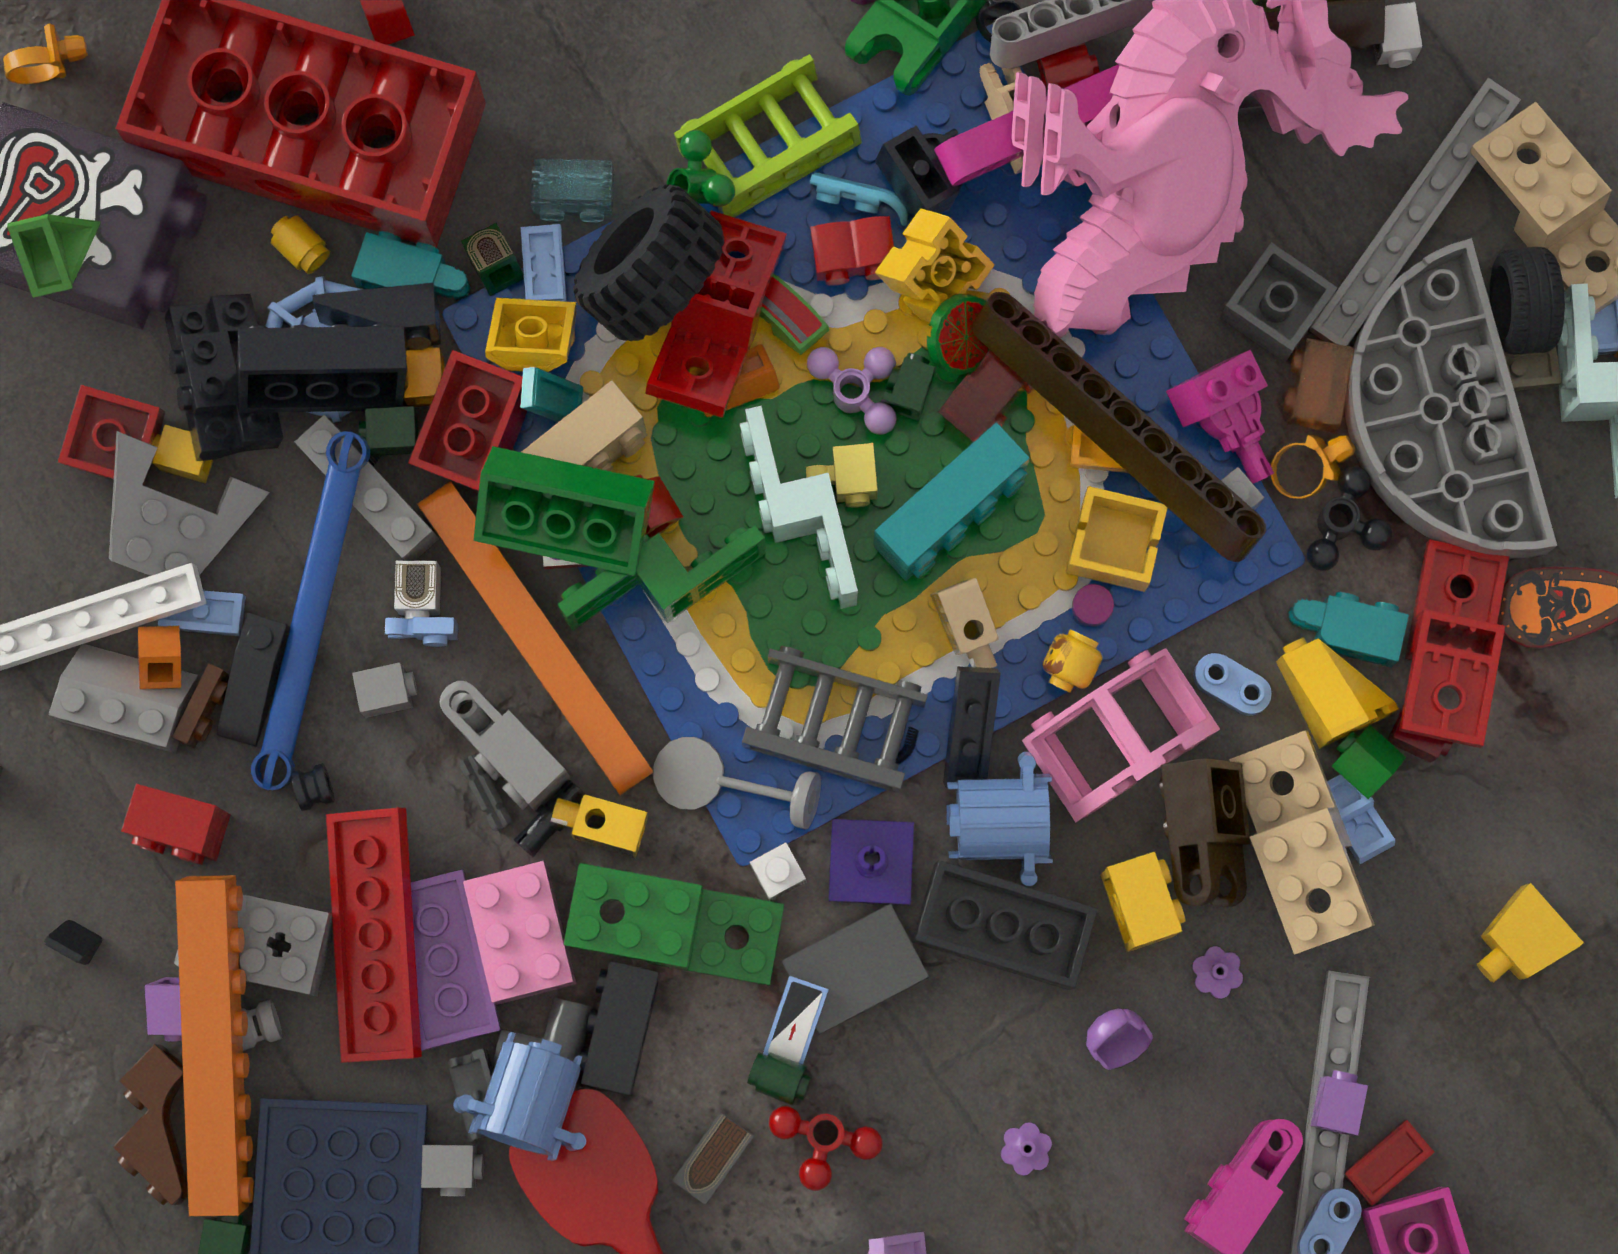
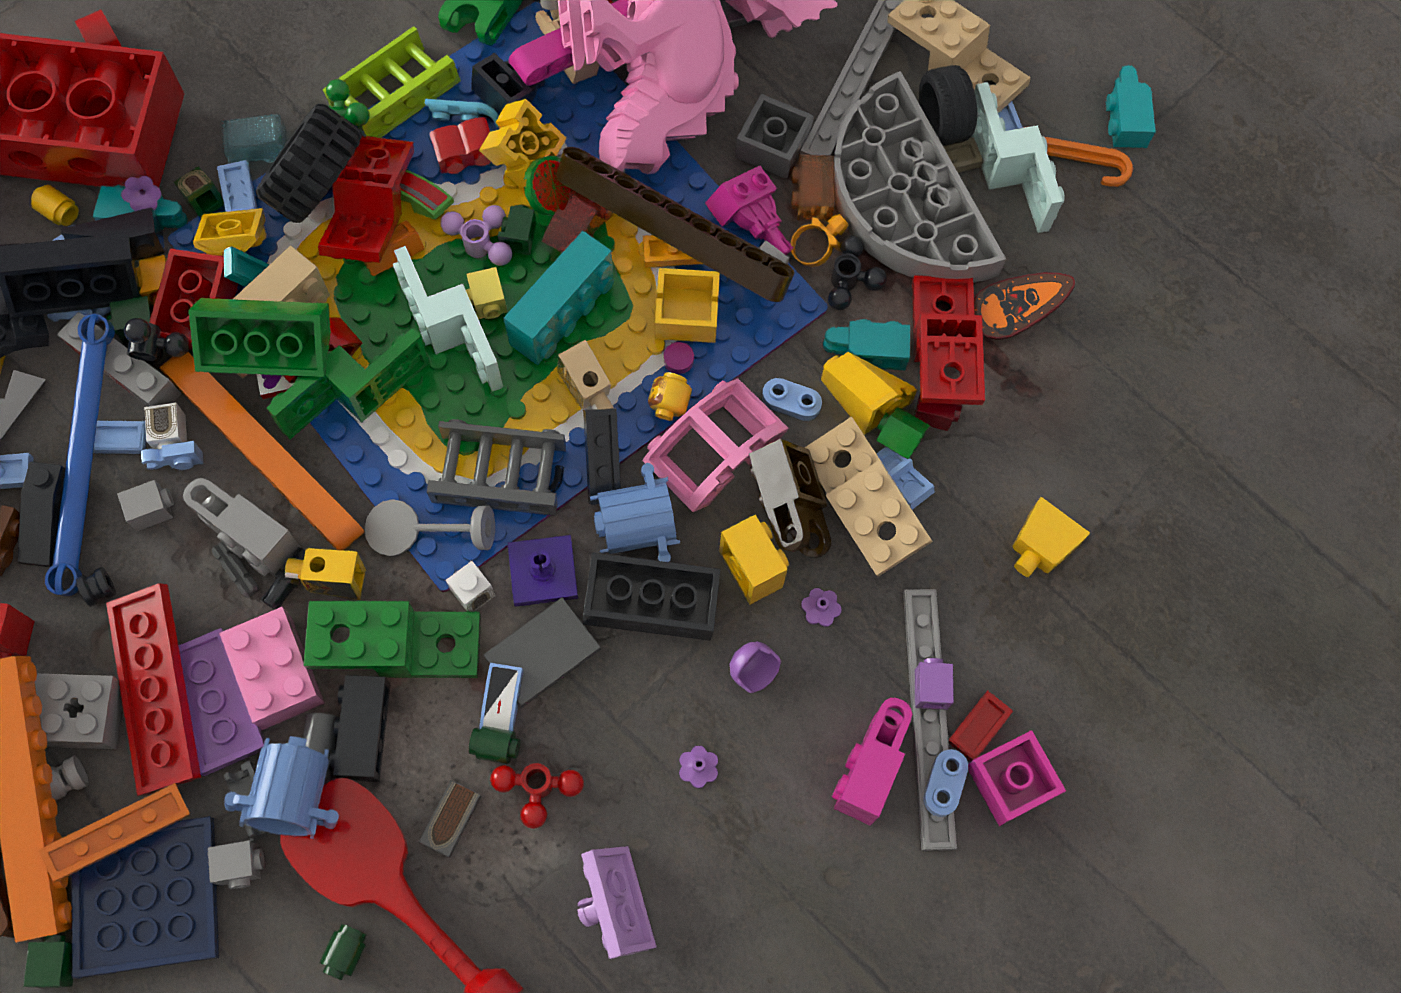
camera: 15 degrees left, 10 degrees down
(316, 1108) = (113, 832): none -> orange plate
(361, 588) = (120, 437): none -> light blue tile
(410, 478) = (148, 346): none -> black piece
(420, 259) = (137, 197): none -> medium lavender plant

